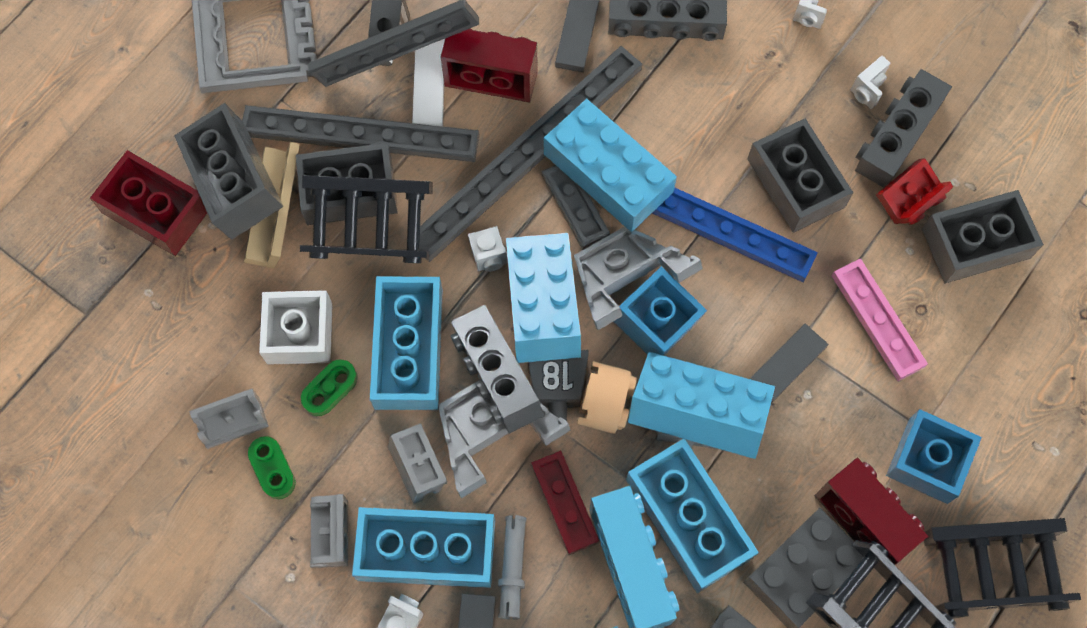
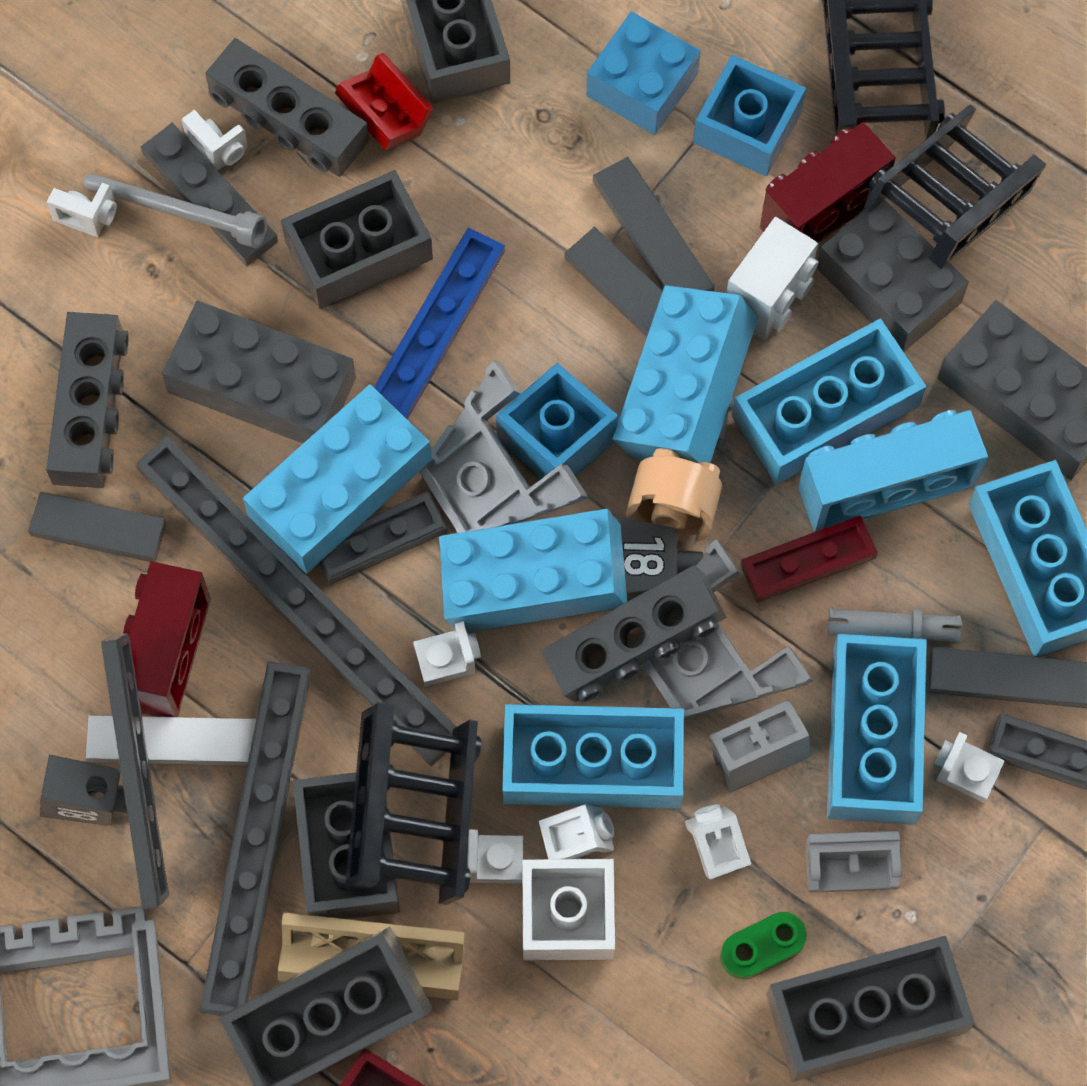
camera: 90 degrees left, 0 degrees up
(212, 538) = (869, 1008): none -> dark grey brick
(229, 418) = (696, 1003): light grey hinge -> none
(326, 386) = (652, 868): green plate -> none
(342, 280) = (495, 858): none -> white bracket
(347, 433) = (718, 840): none -> white bracket
(354, 337) = (577, 832): none -> white bracket
(692, 116) = (257, 373): none -> dark grey brick
(790, 470) = (775, 274): none -> white brick
(801, 100) = (246, 227): none -> light grey piece
(828, 388) = (650, 227): none -> dark grey tile
(829, 84) = (201, 185): none -> dark grey plate
(879, 320) = (560, 163): bright pink plate -> none
(963, 377) = (642, 73): none -> dark azure brick

